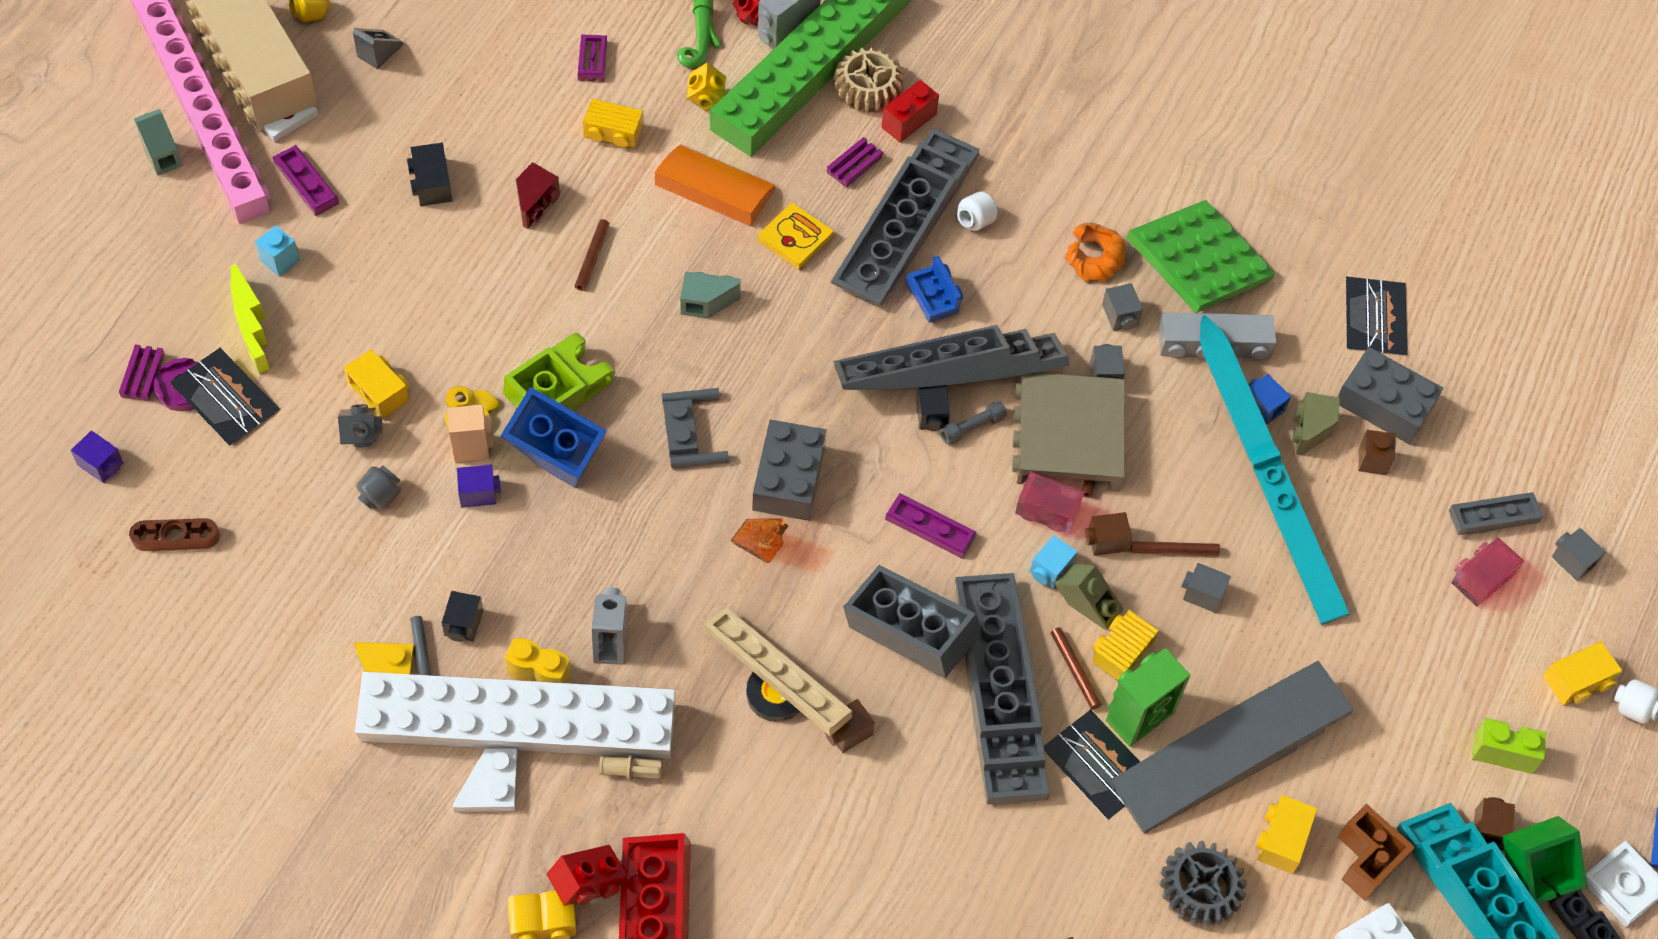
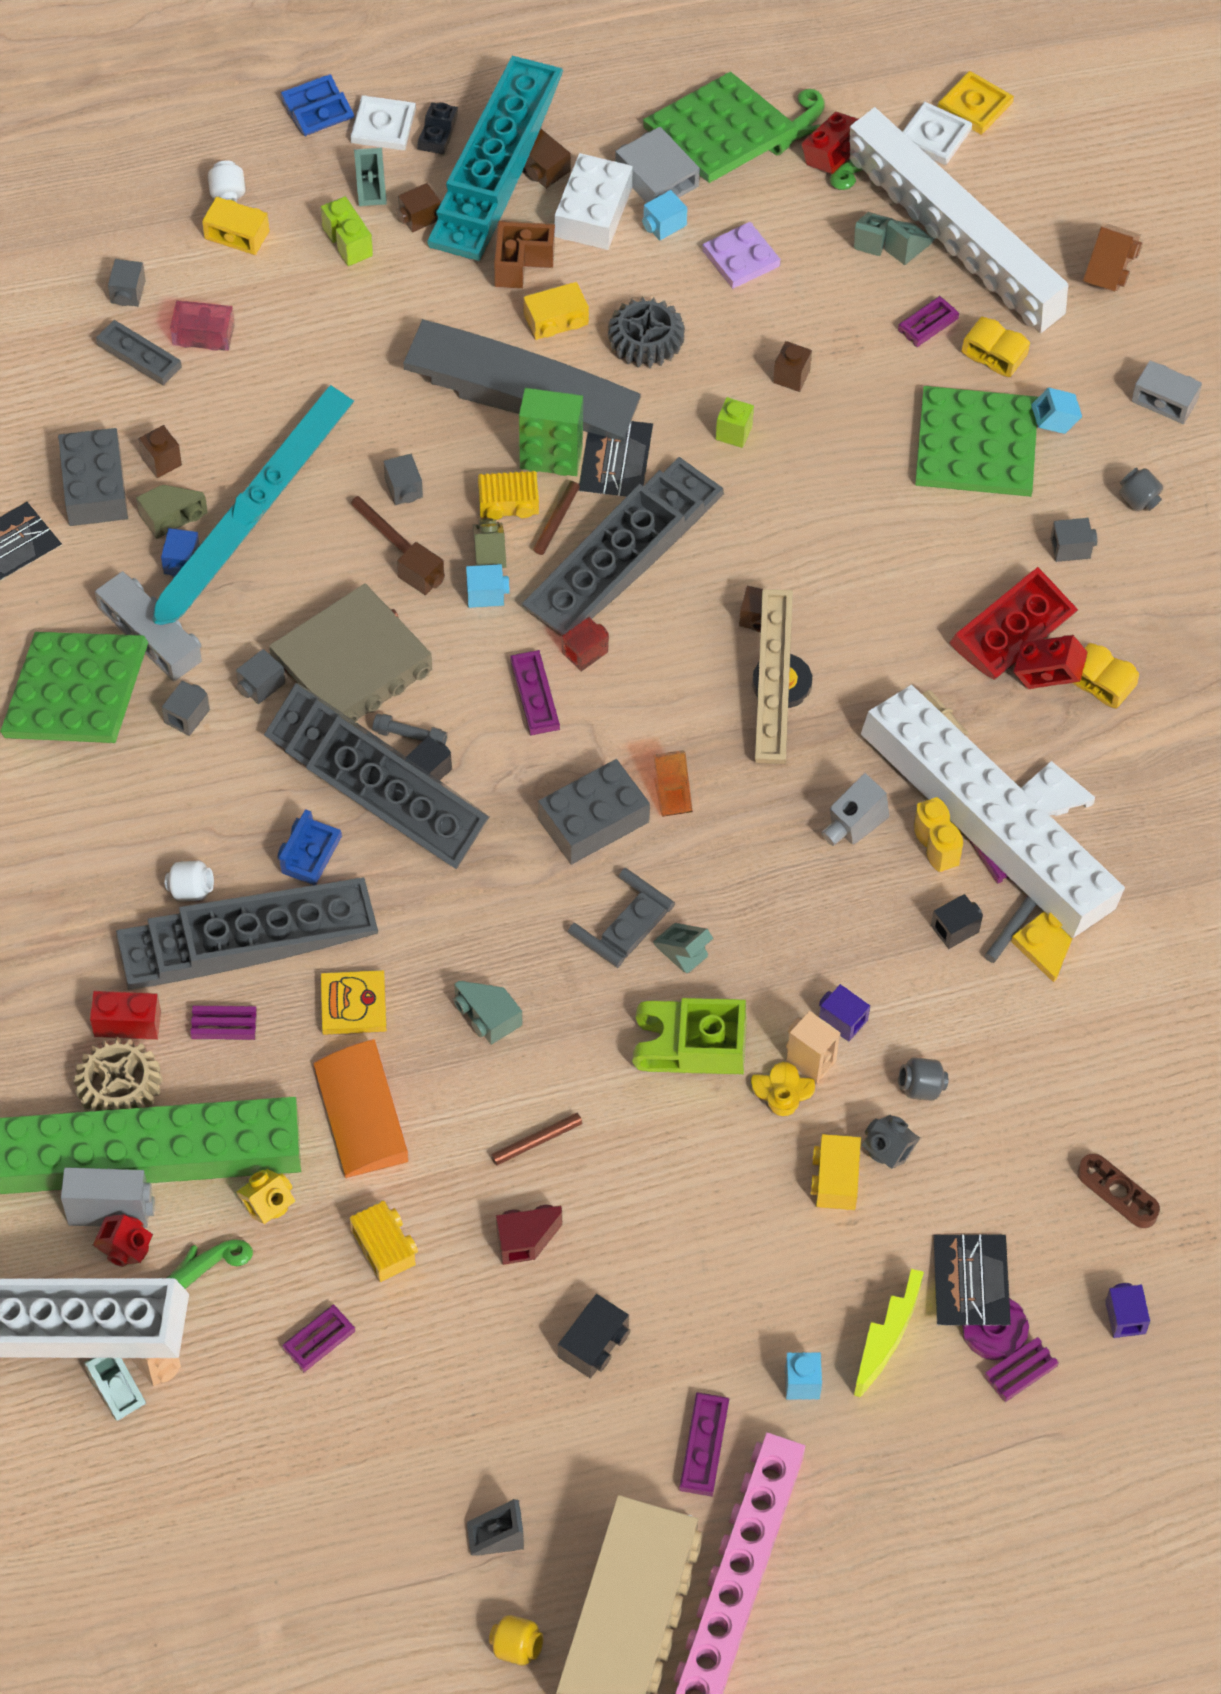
camera: 130 degrees left, 0 degrees up
(158, 142) = (808, 1591): sand green slope -> none
(553, 436) = (750, 970): blue slope -> none
(631, 437) = (684, 945): none -> sand green slope
(912, 621) = (642, 621): dark grey brick -> none
(938, 577) = (585, 643): none -> clear red brick
(1045, 865) = (734, 422): none -> lime brick
(1049, 503) = (434, 623): clear pink brick -> none
(1108, 263) = (135, 753): orange piece -> none
(1547, 852) = (421, 154): green piece -> none
(1550, 804) = (370, 176): none -> sand green slope

